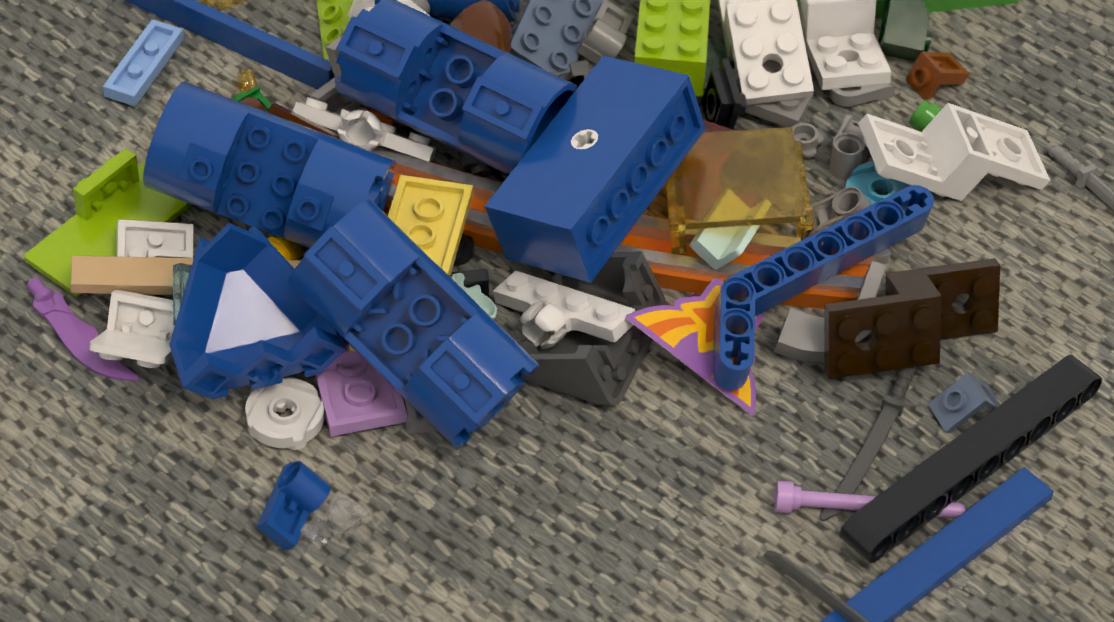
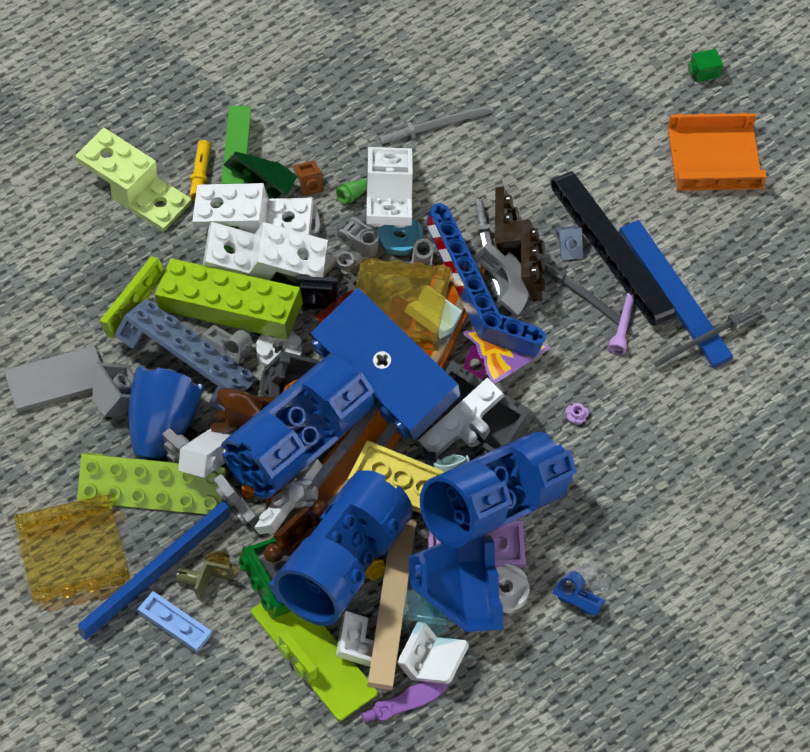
camera: 80 degrees left, 10 degrees up
(215, 73) = (202, 578): none -> olive bracket
(633, 468) = (576, 418): none -> lavender plate

